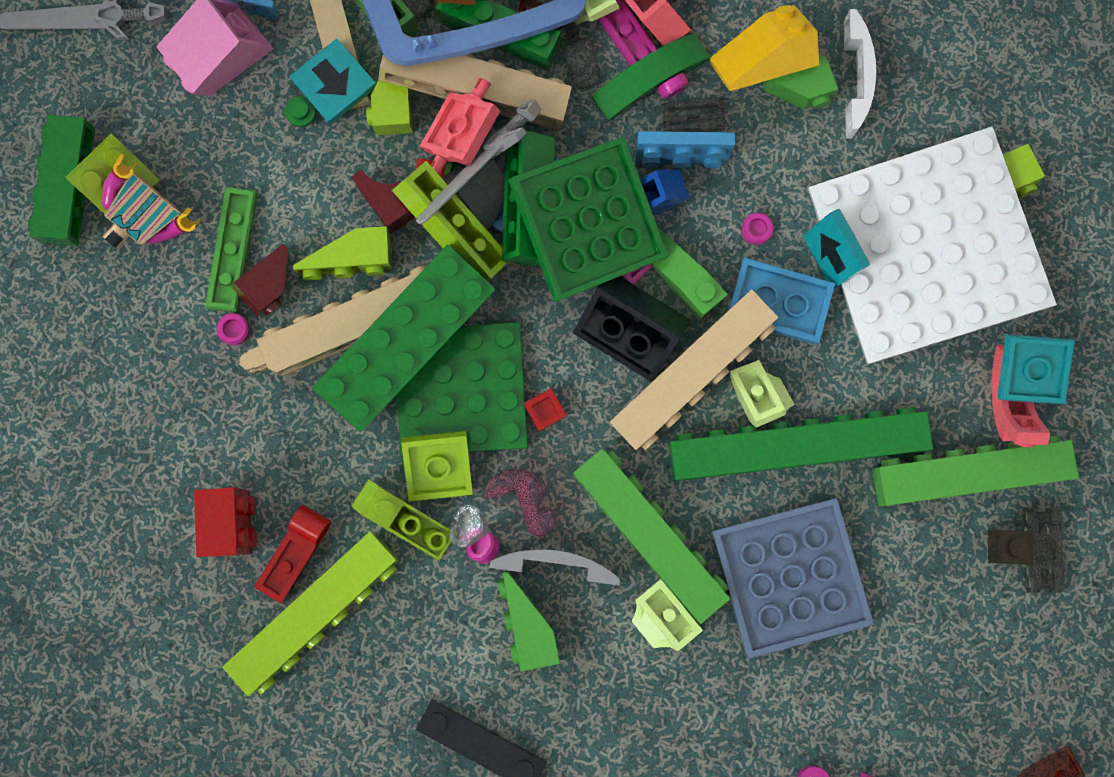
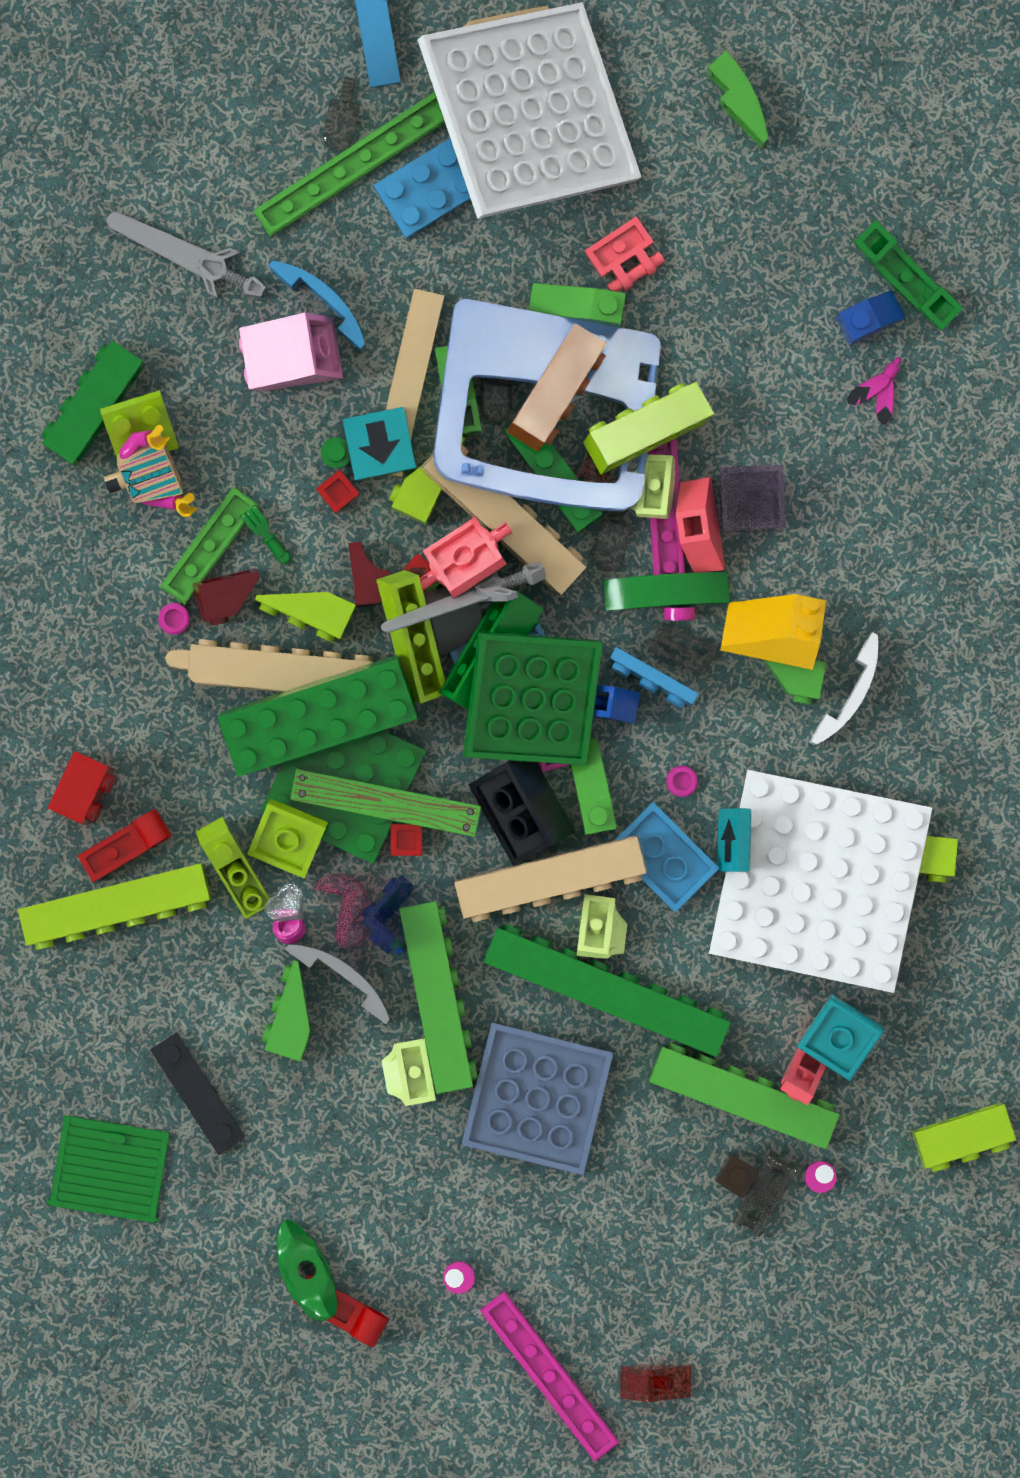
camera: 25 degrees right, 5 degrees up
(266, 208) = (259, 526): none -> green piece
(319, 142) = (337, 491): none -> red plate
(508, 386) = (385, 803): none -> bright green tile
(557, 487) = (380, 913): none -> clear blue bracket
(1081, 507) = (820, 1176): none -> dark pink tile

